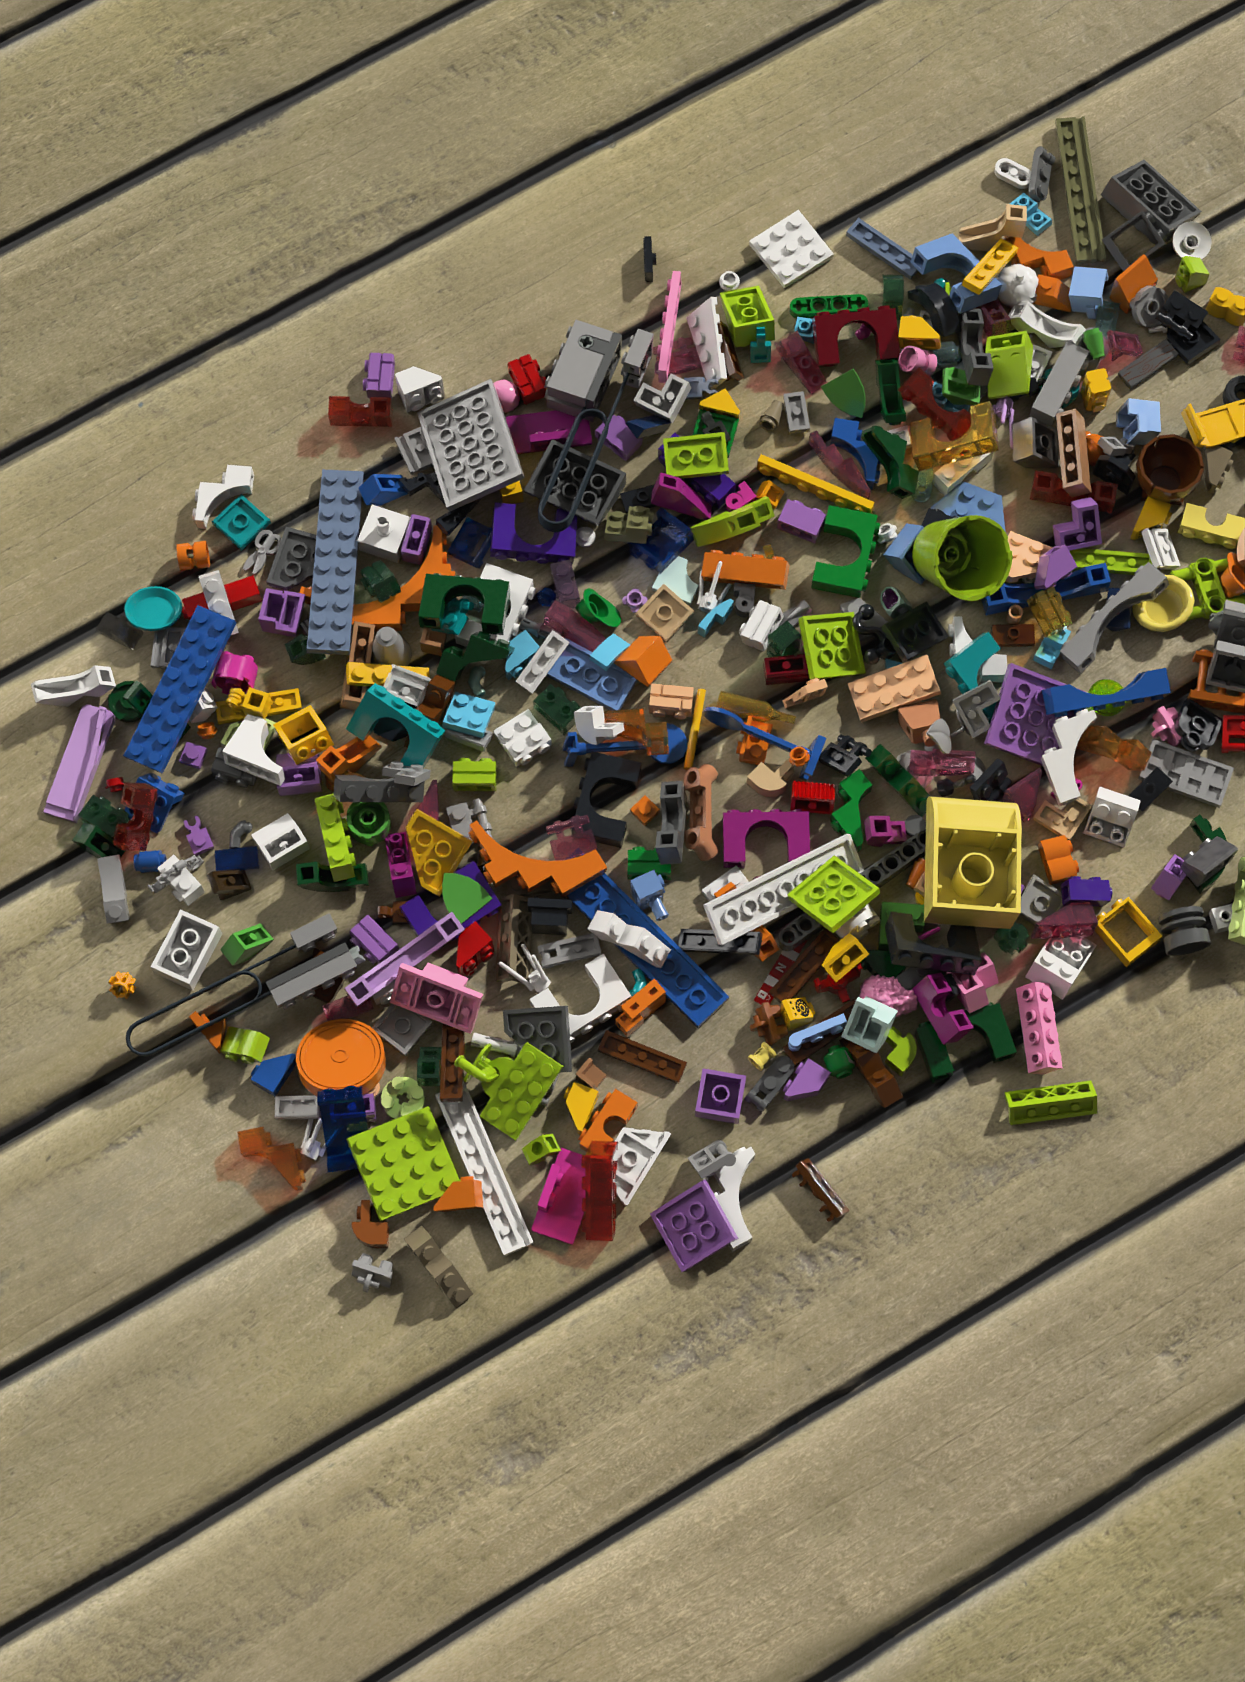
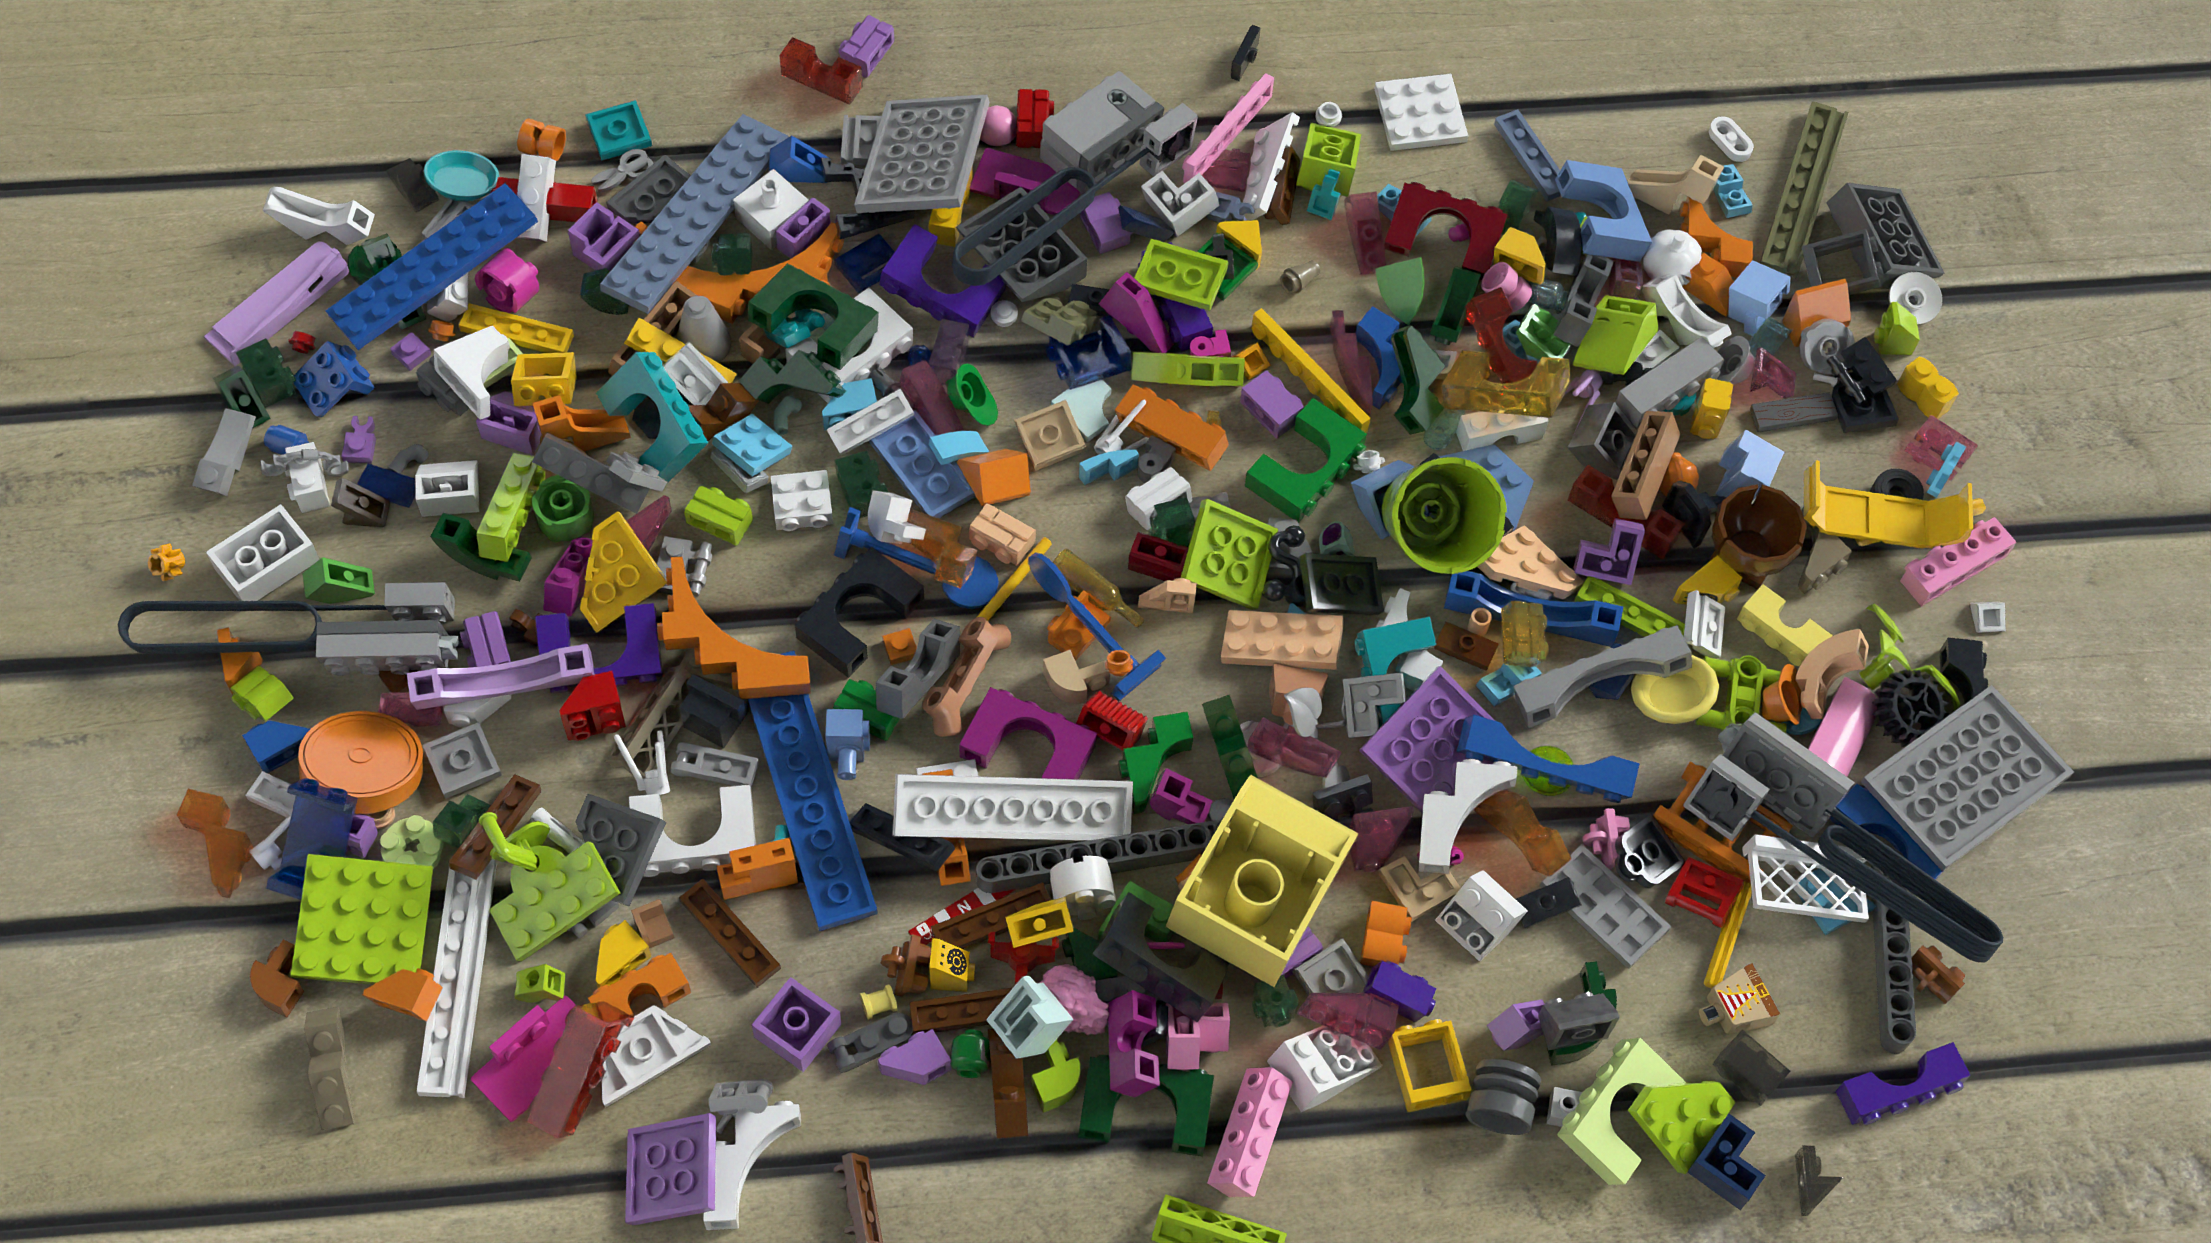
camera: 20 degrees right, 10 degrees down
(135, 833) = (287, 402): clear red arch -> none
(209, 496) = (603, 88): white arch -> none
(253, 703) = (505, 316): yellow brick -> none
(371, 1275) = (240, 1038): light grey hips -> none
(419, 388) = (900, 72): white slope -> none
(437, 995) = (517, 738): bright pink brick -> none
(463, 895) = (618, 639): bright green shield -> none
(571, 845) = (788, 640): clear pink plate -> none
(632, 938) = (792, 781): white arch -> none
(634, 594) = (1019, 400): lavender plate -> none
(796, 412) = (1331, 285): light grey plate -> none
(816, 1032) = (957, 1001): light blue plate -> none
(828, 302) = (1433, 182): green beam -> none
(833, 894) = (1068, 839): lime plate -> none
(842, 760) = (1177, 690): black plate -> none
(946, 787) = (1289, 784): black piece -> none
(989, 266) = (1646, 215): yellow plate -> none
(1040, 174) = (1763, 152): dark grey plate -> none
(1053, 566) = (1557, 581): medium lavender slope -> none
(1094, 341) = (1734, 352): bright green cone -> none
(1113, 446) = (1702, 480): light grey plate -> none

